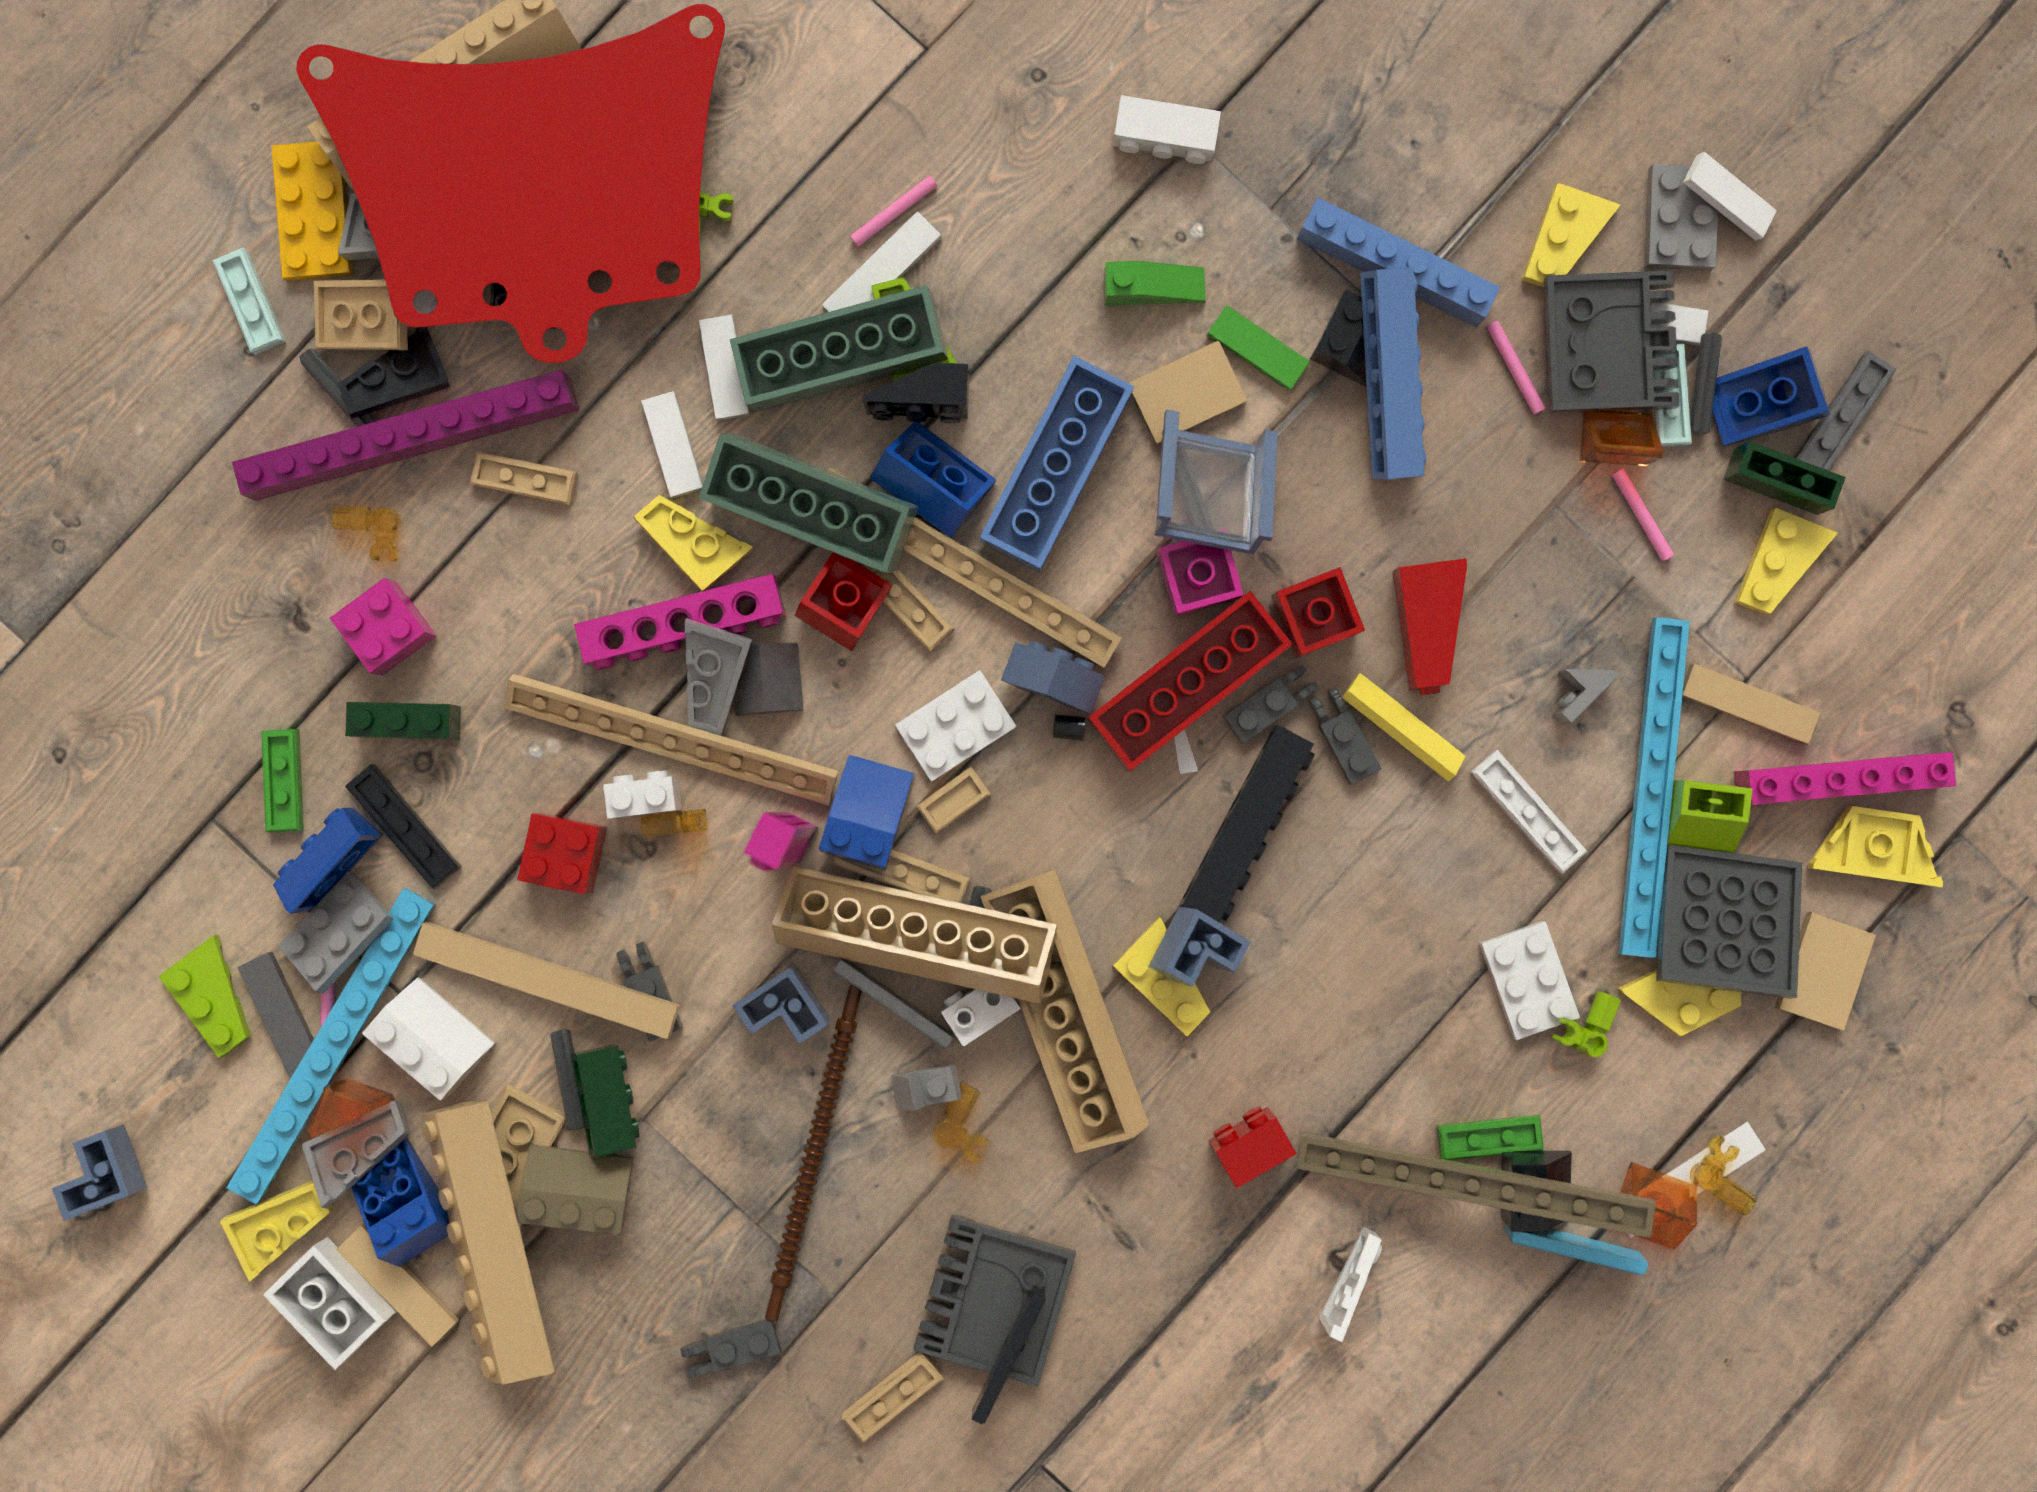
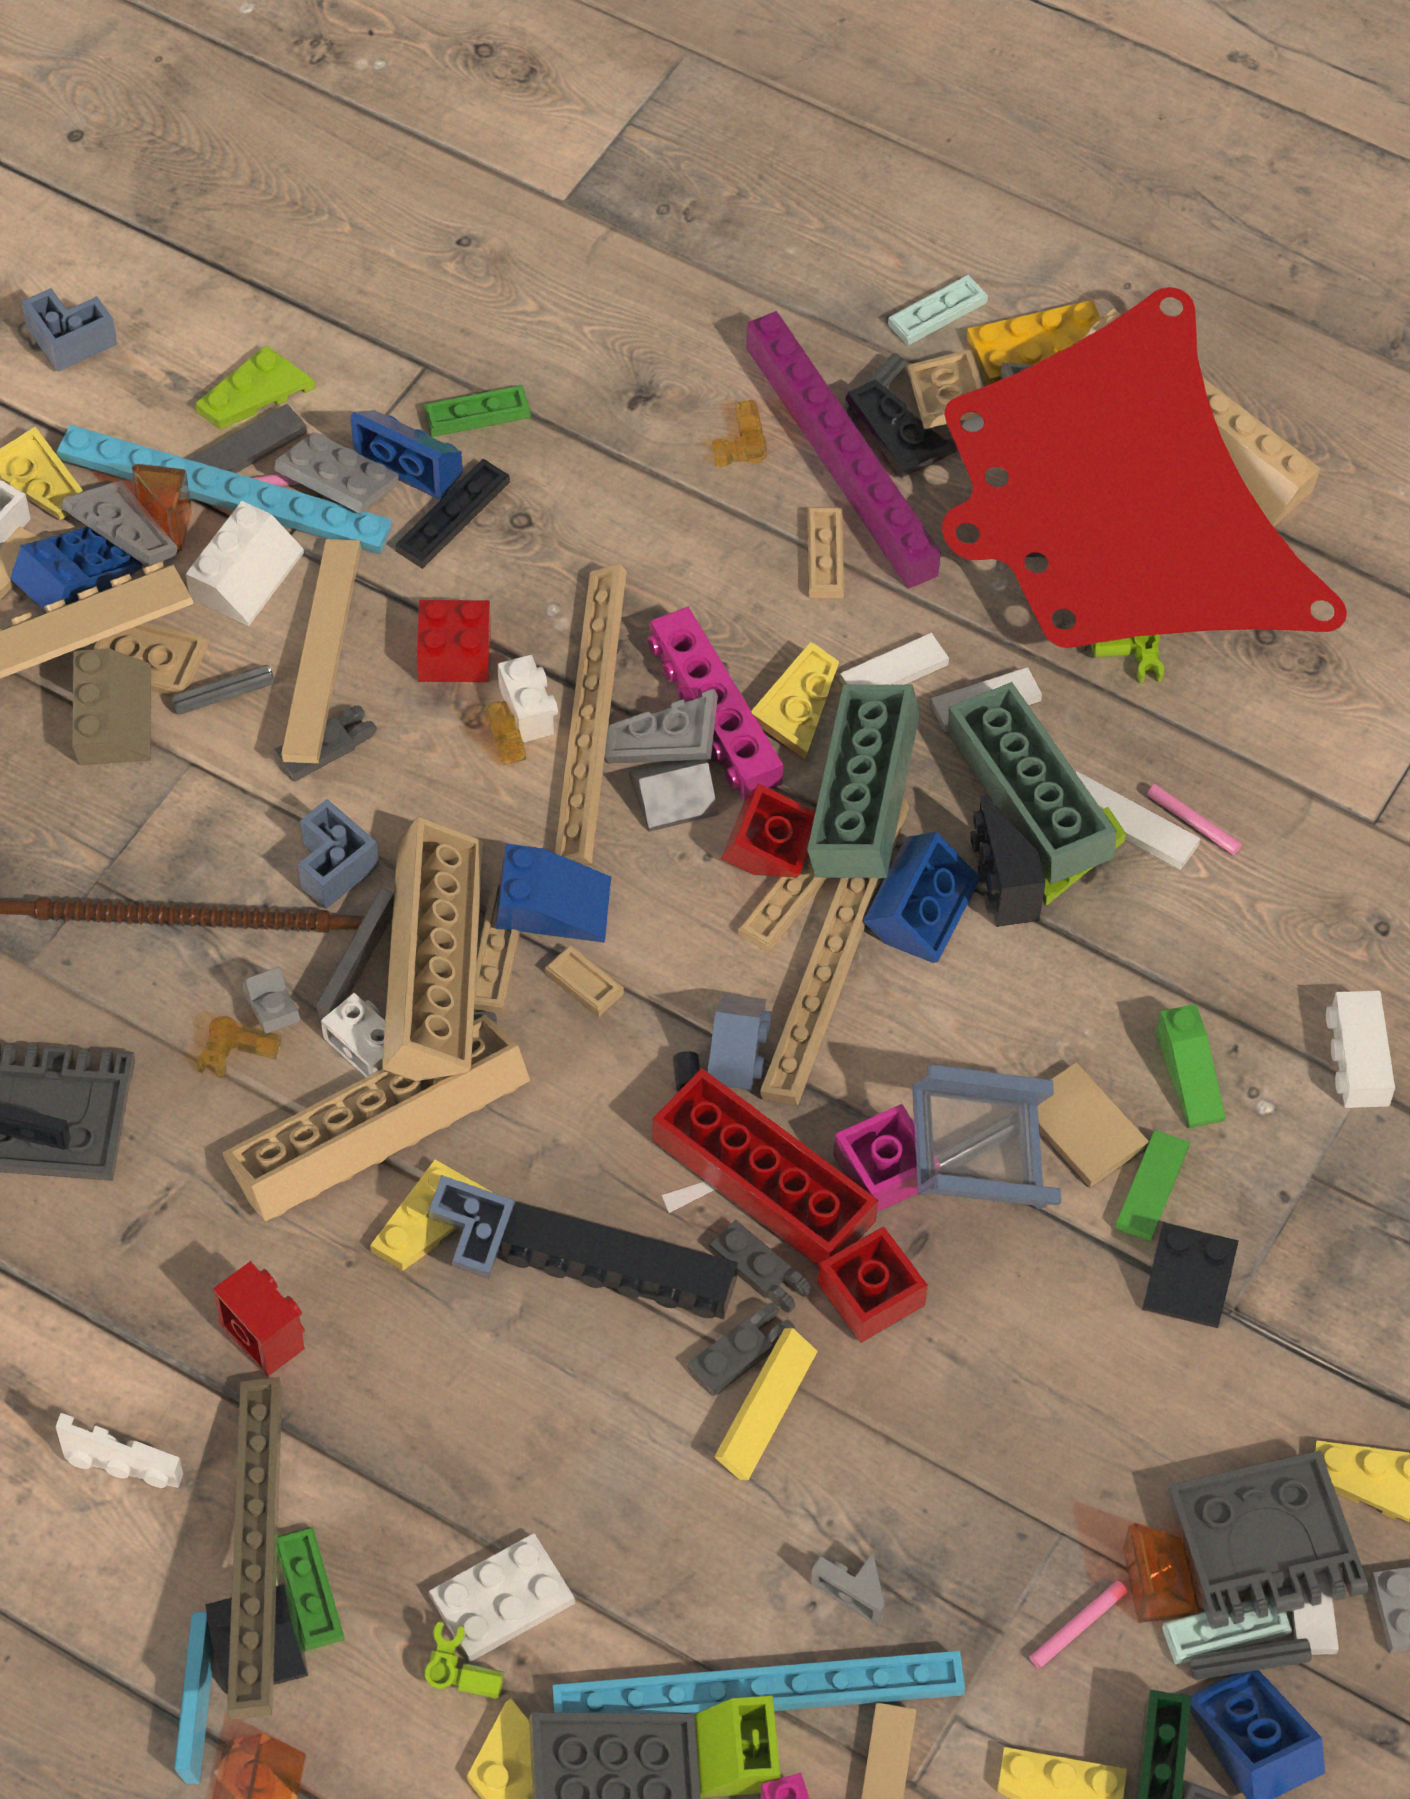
camera: 85 degrees right, 30 degrees down
(383, 626) = (647, 459): dark pink brick -> none
(403, 720) = (558, 491): dark green brick -> none
(605, 1100) = (208, 717): dark green brick -> none
(779, 841) = (507, 779): dark pink brick -> none
(955, 725) = (664, 968): white plate -> none
(1056, 464) = (966, 1003): medium blue brick -> none
(1373, 248) = (1288, 1302): medium blue brick -> none
(1393, 373) = (1159, 1302): medium blue brick -> none
(1429, 618) = (894, 1408): red slope -> none
(1515, 367) = (1213, 1451): bright pink bar -> none
(1528, 812) = (698, 1562): white tile -> none

